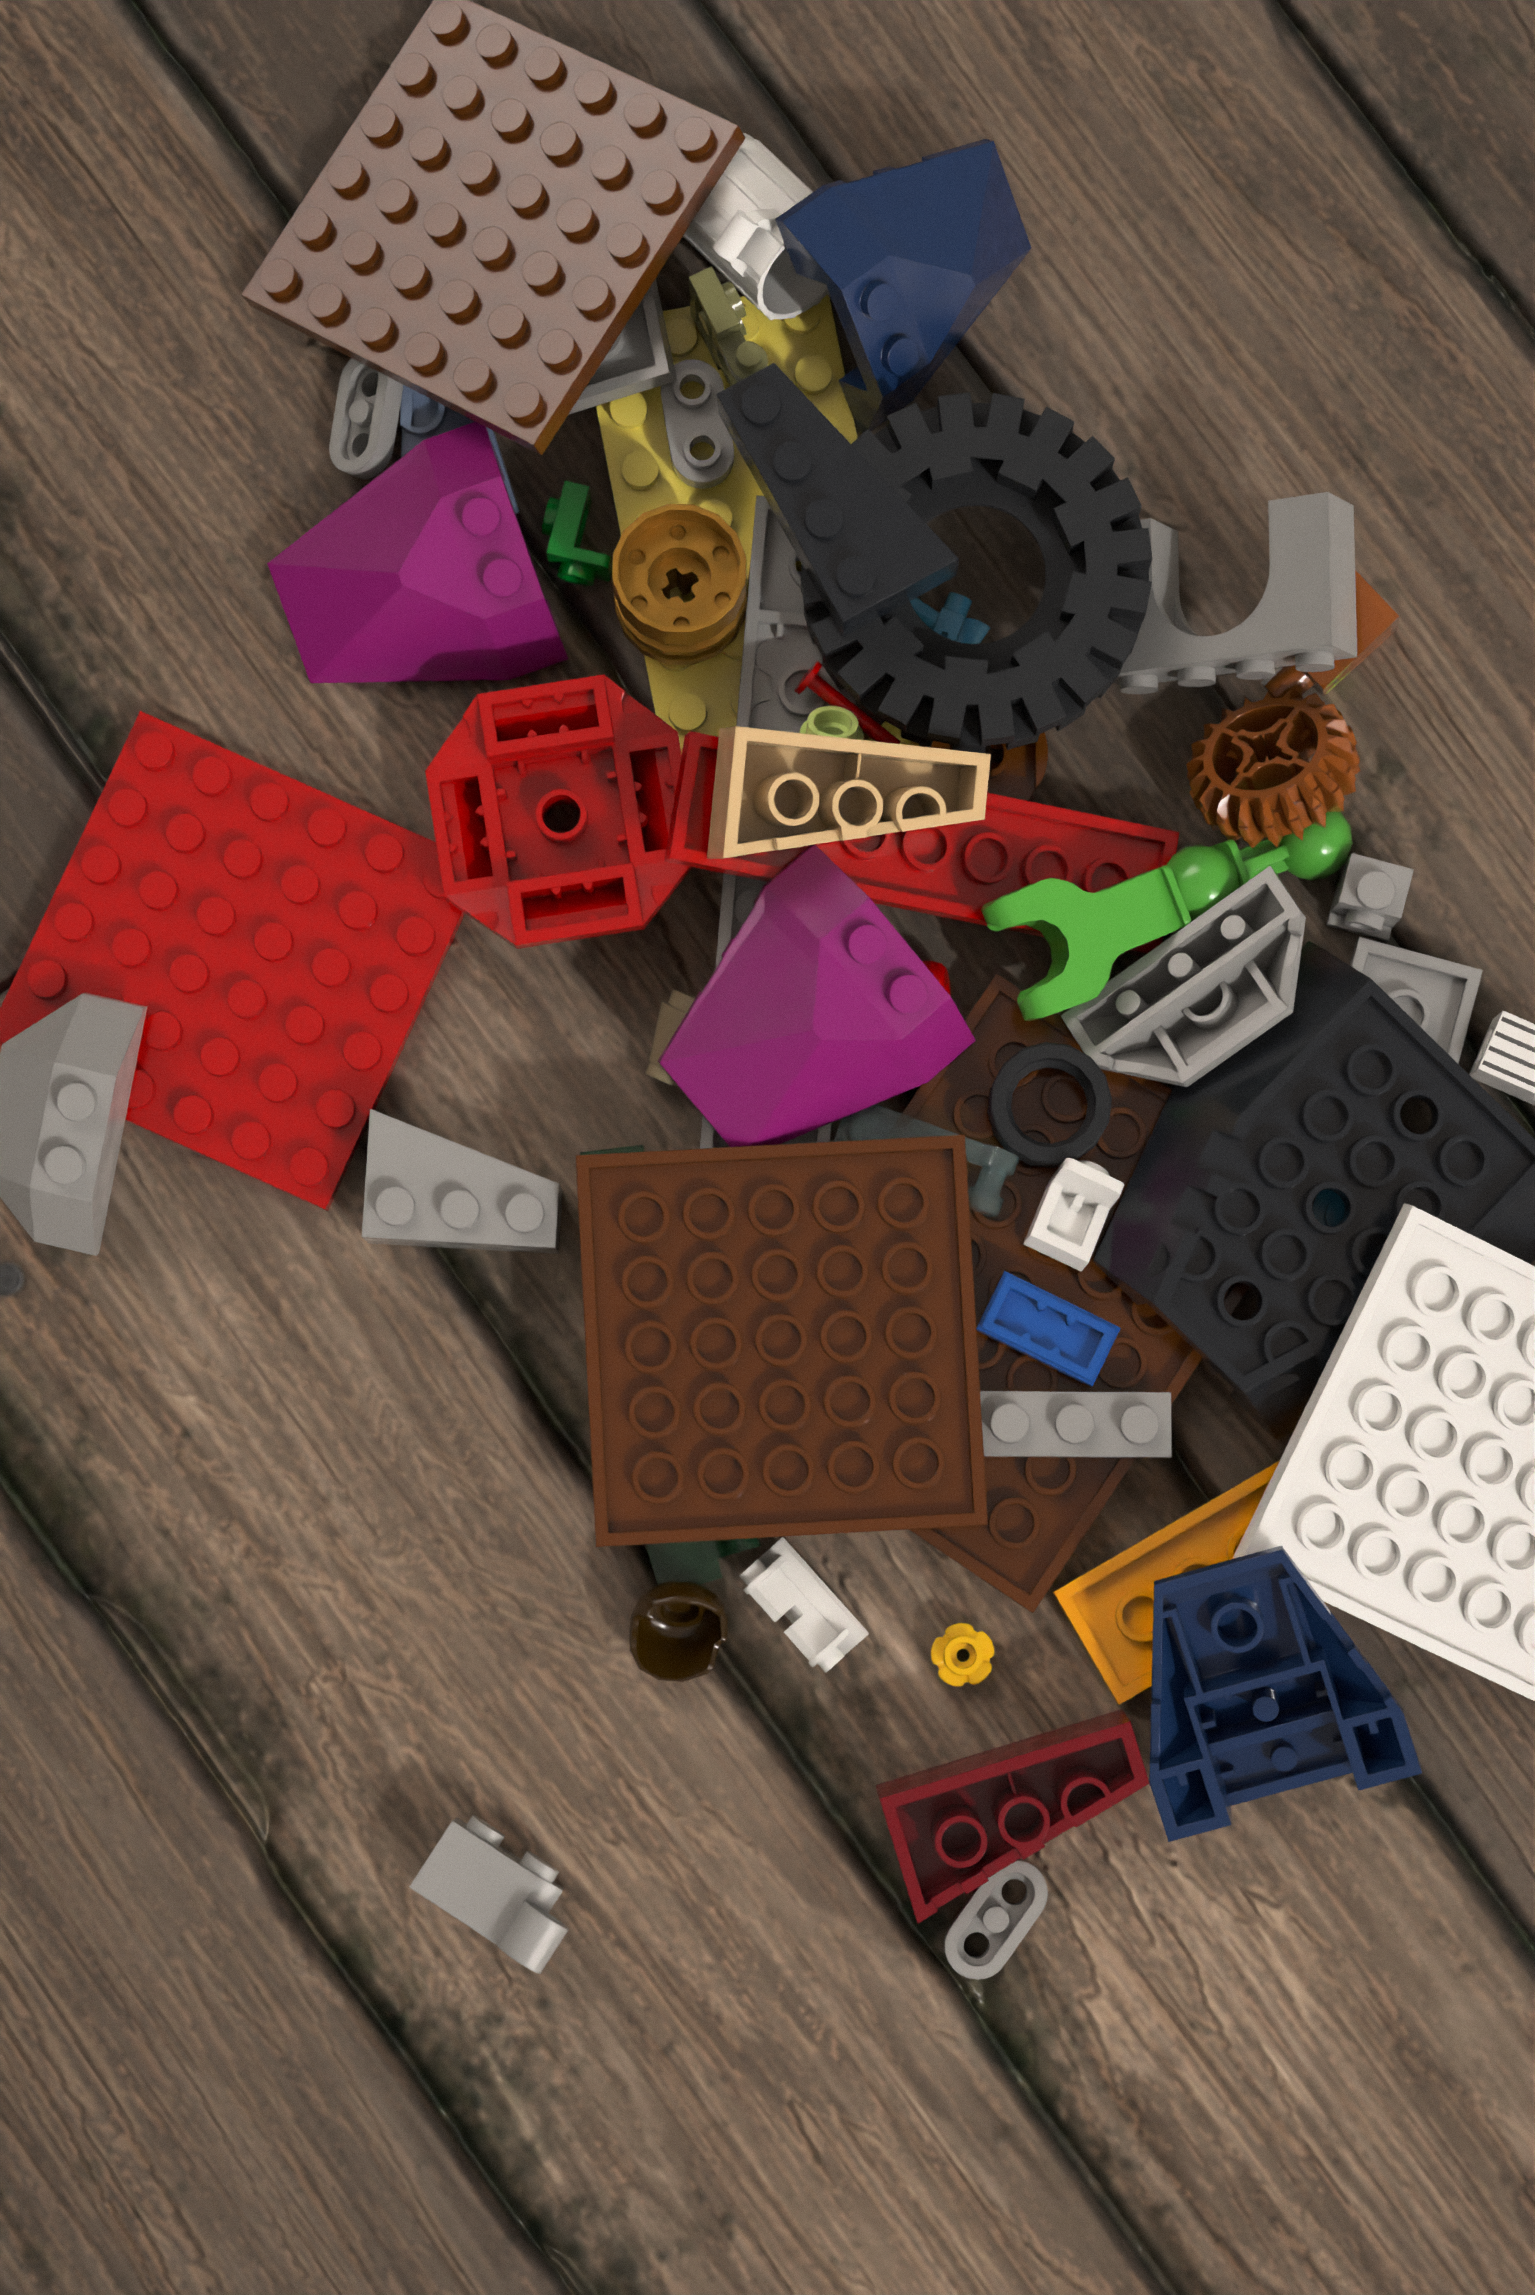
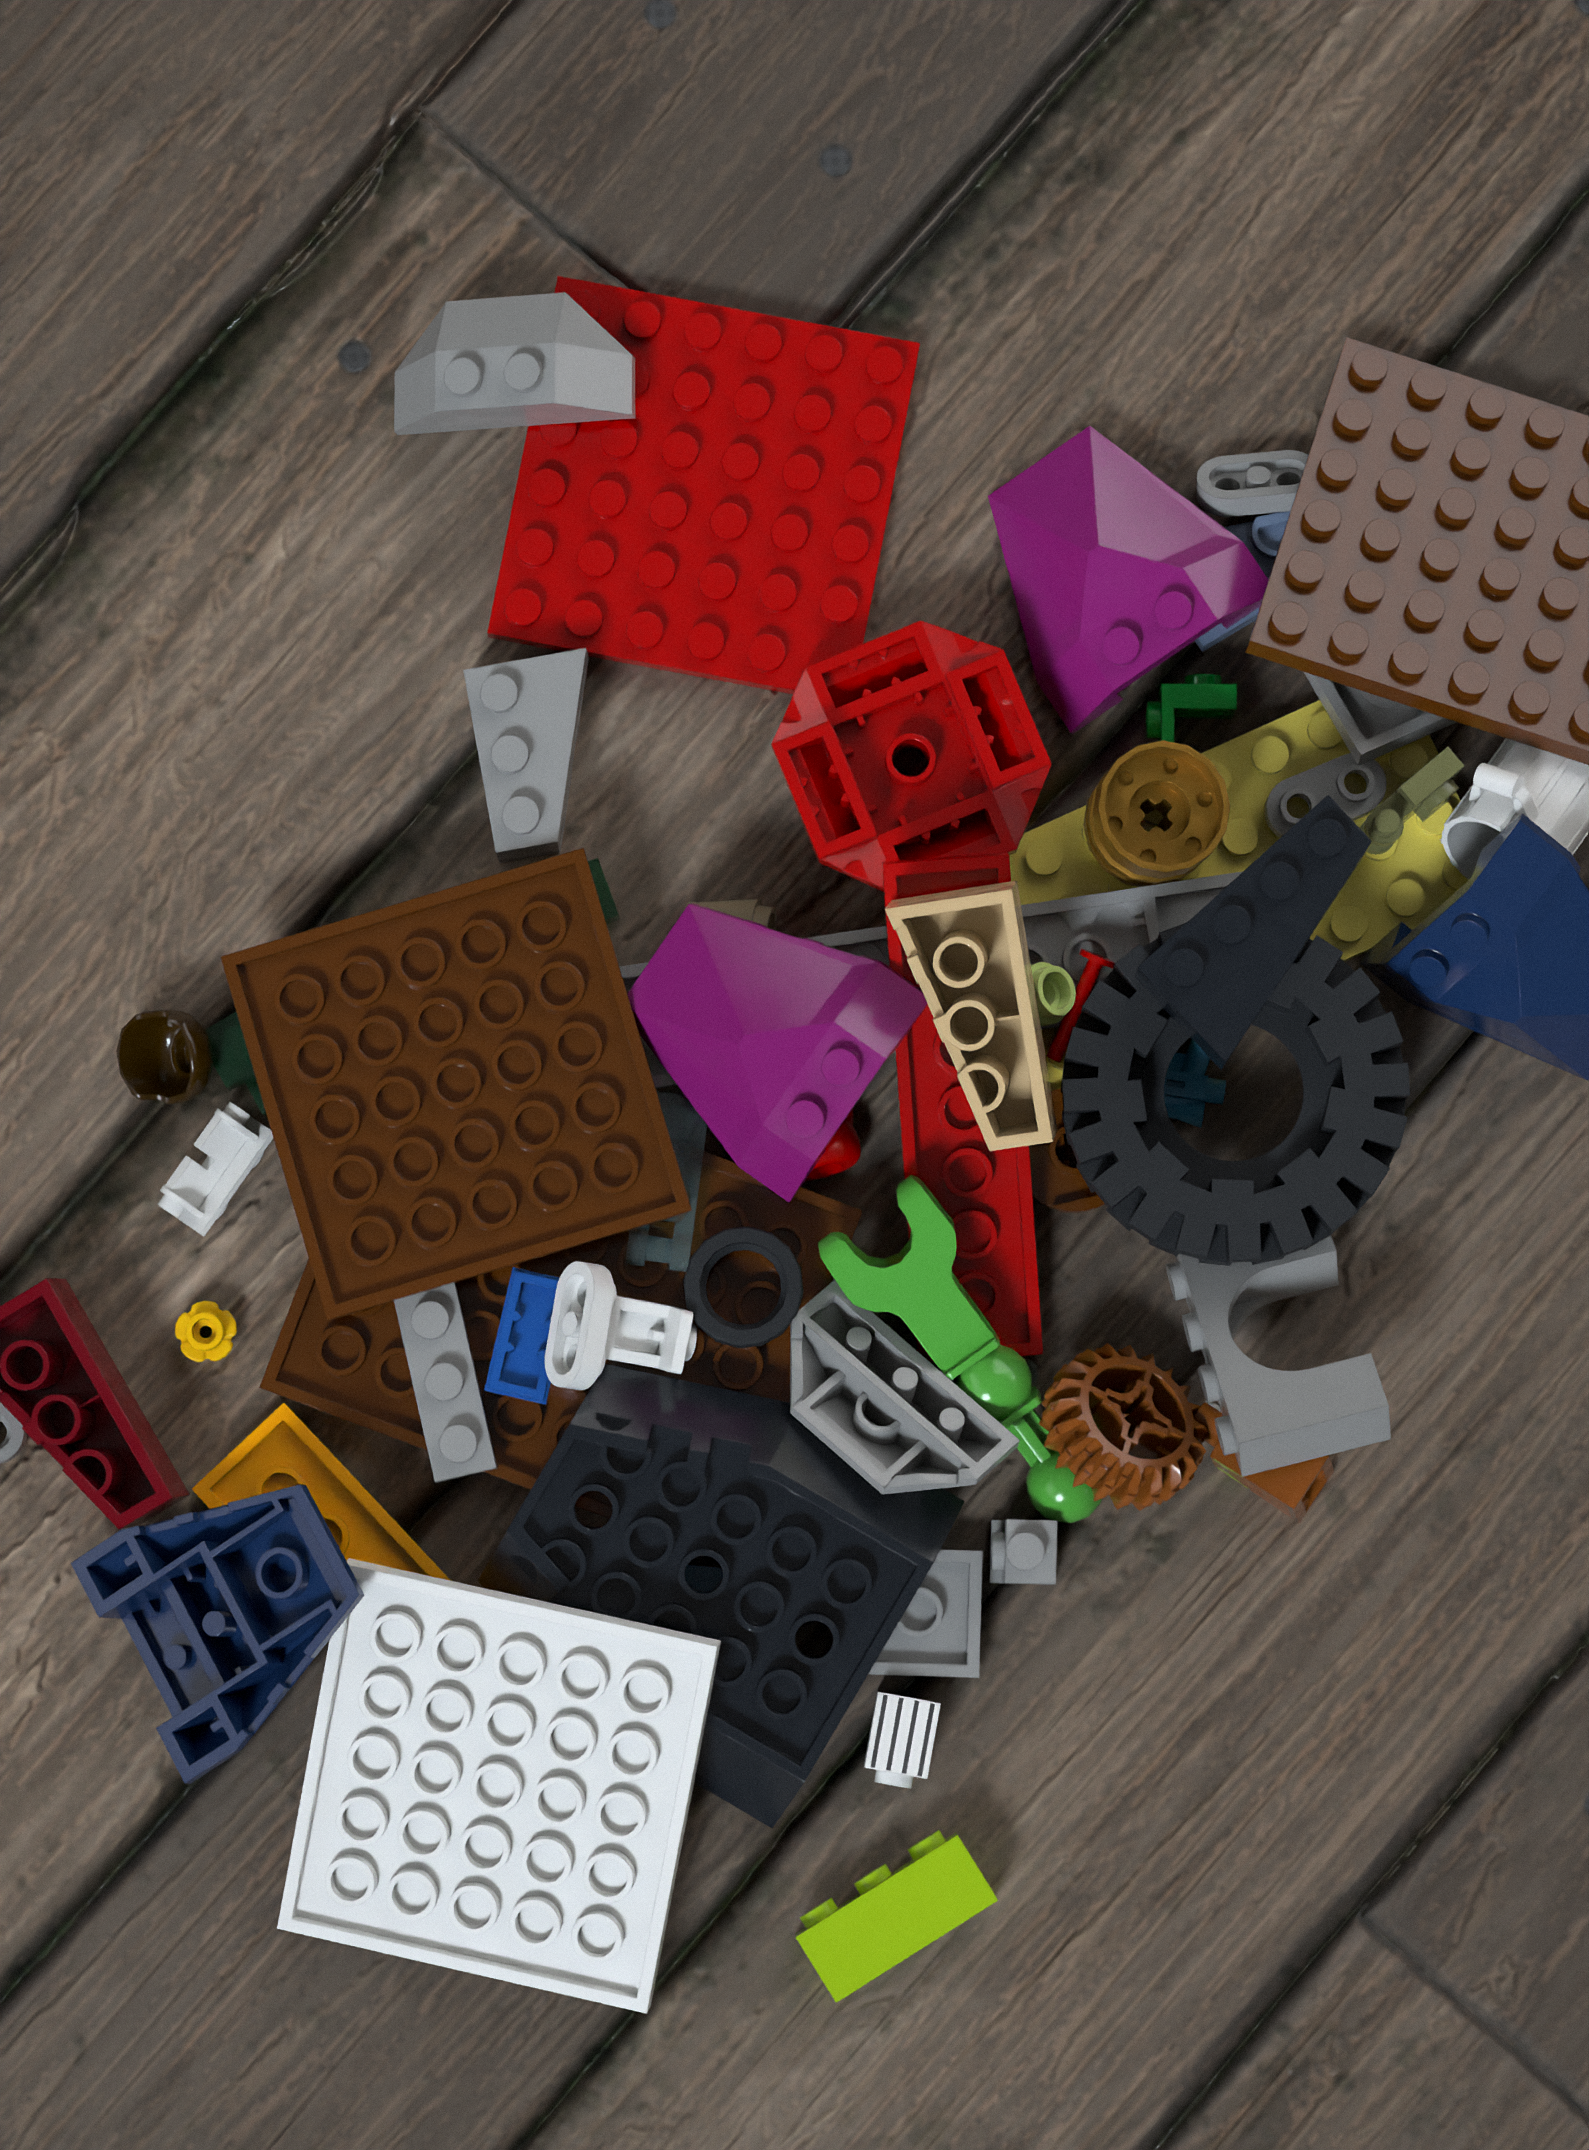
camera: 75 degrees right, 0 degrees up
(1053, 1273) = (579, 1325): none -> white plate

